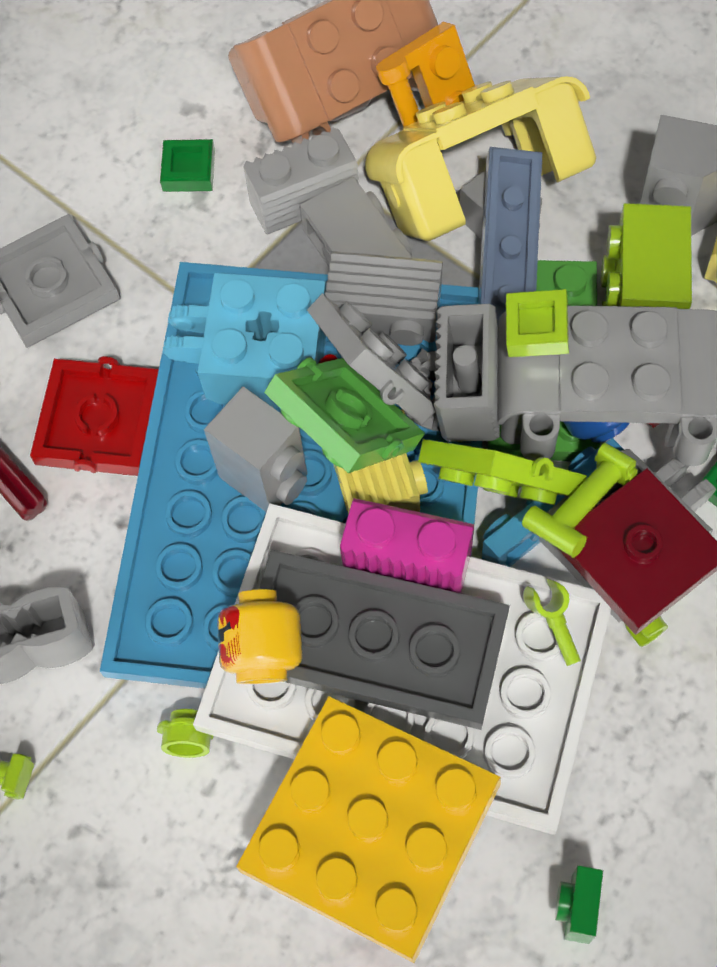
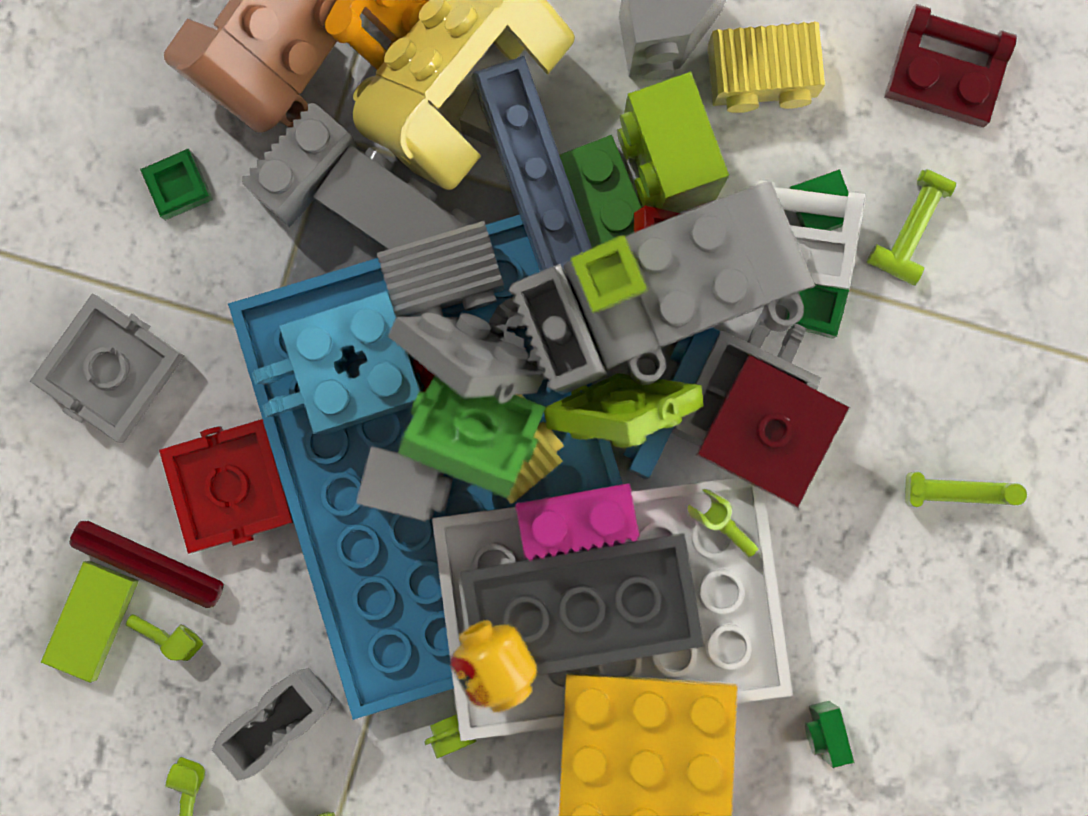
camera: 30 degrees left, 20 degrees up
(559, 528) = (698, 448): lime piece -> none

